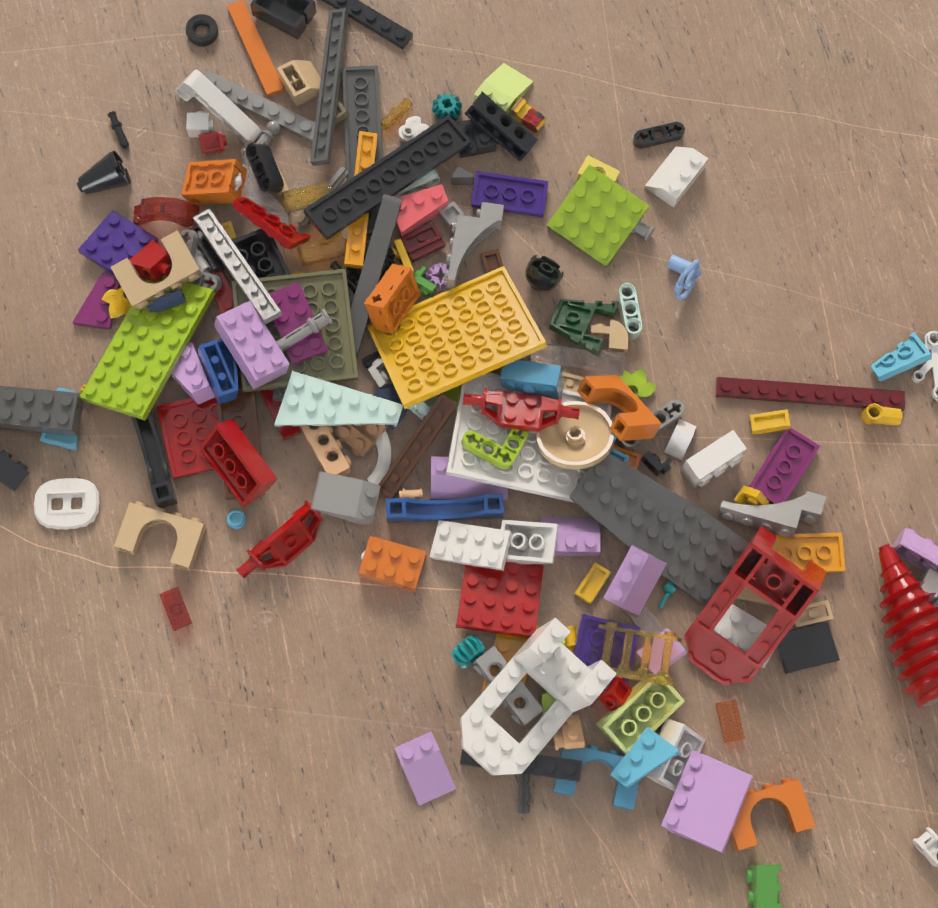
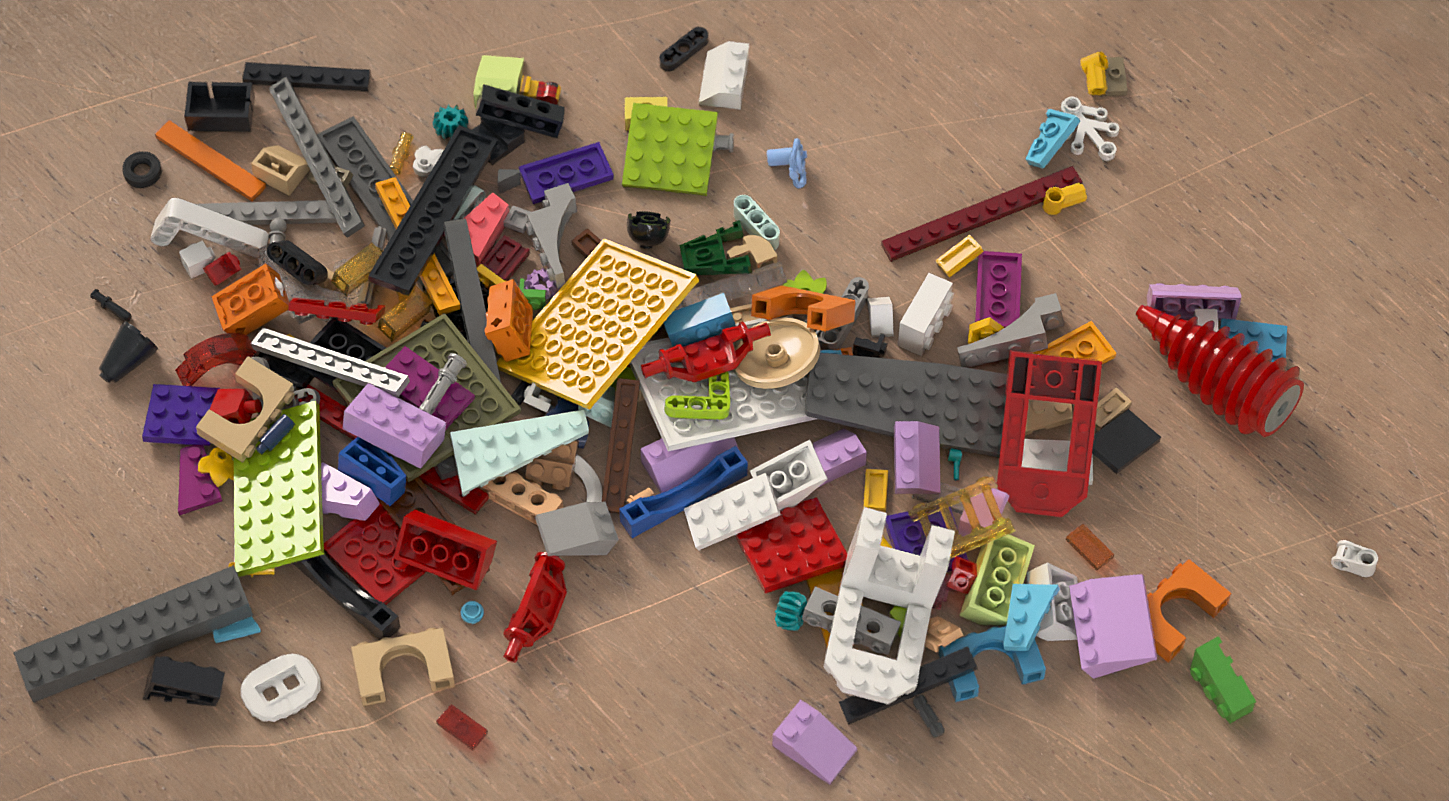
camera: 25 degrees left, 15 degrees down
(392, 564) = (662, 571): orange piece -> none

